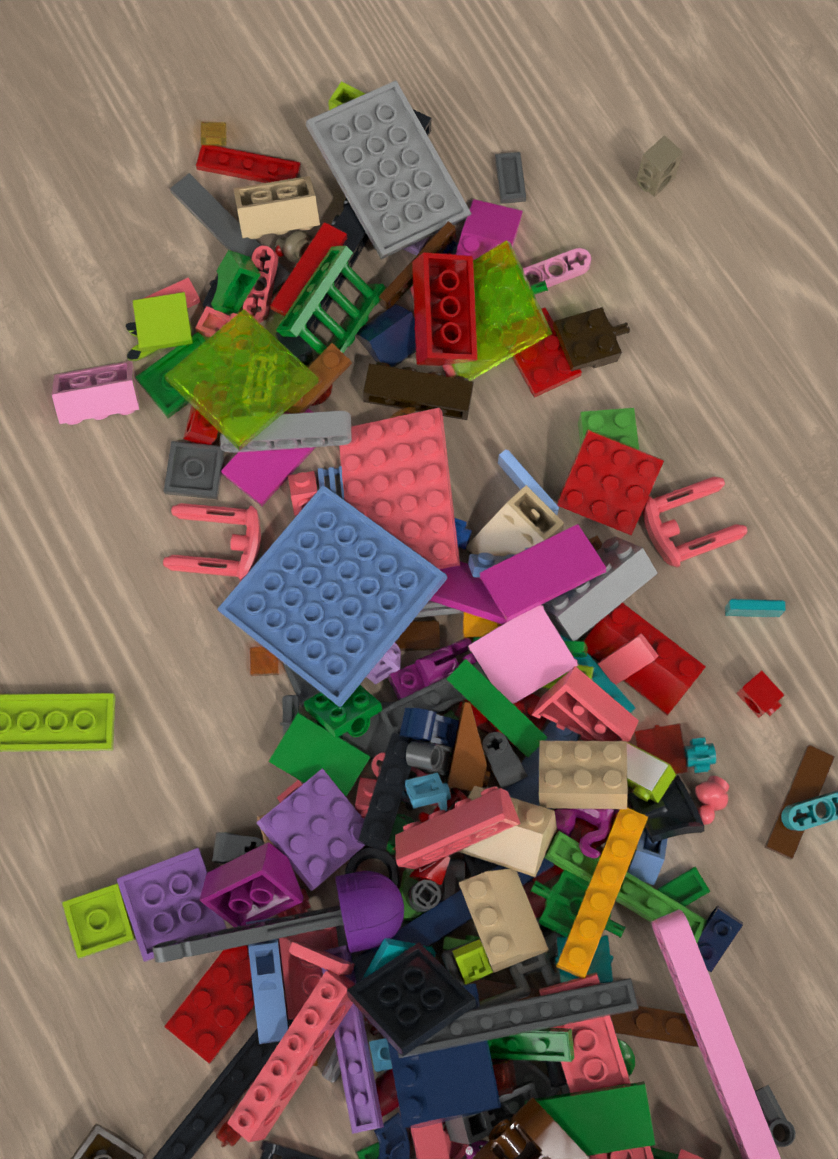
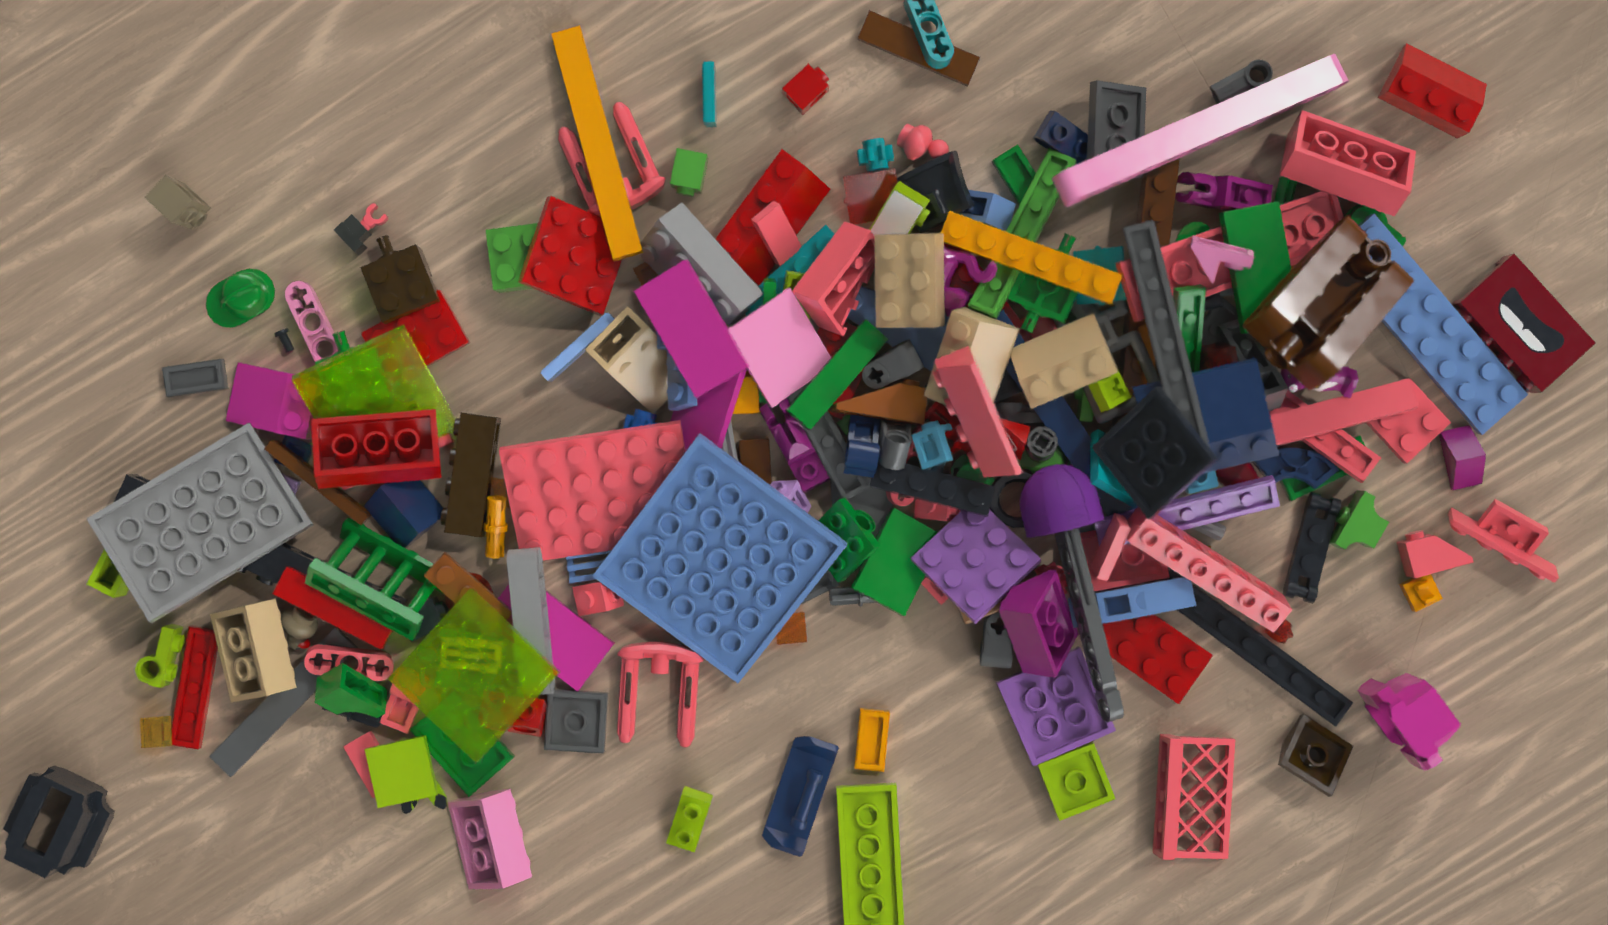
camera: 90 degrees left, 15 degrees up
(68, 1013) = (1169, 802): none -> coral fence
(98, 561) = (689, 819): none -> lime plate
(110, 662) = (799, 794): none -> dark blue piece
(135, 69) = (79, 829): none -> black piece
(155, 730) = (872, 739): none -> light orange tile
(276, 143) = (169, 644): none -> lime plate
(372, 408) = (495, 526): none -> light orange pin
(540, 248) = (284, 338): none -> black piece
(577, 216) = (240, 298): none -> green piece
(605, 1067) = (1212, 252): none -> bright pink slope
(632, 307) = (356, 232): none -> pearl dark grey piece
(664, 1091) = (1223, 191): none -> magenta plate
(684, 587) = (688, 172): none -> bright green brick
(709, 507) = (597, 143): none -> light orange tile
(739, 985) = (1114, 116): none -> dark grey plate

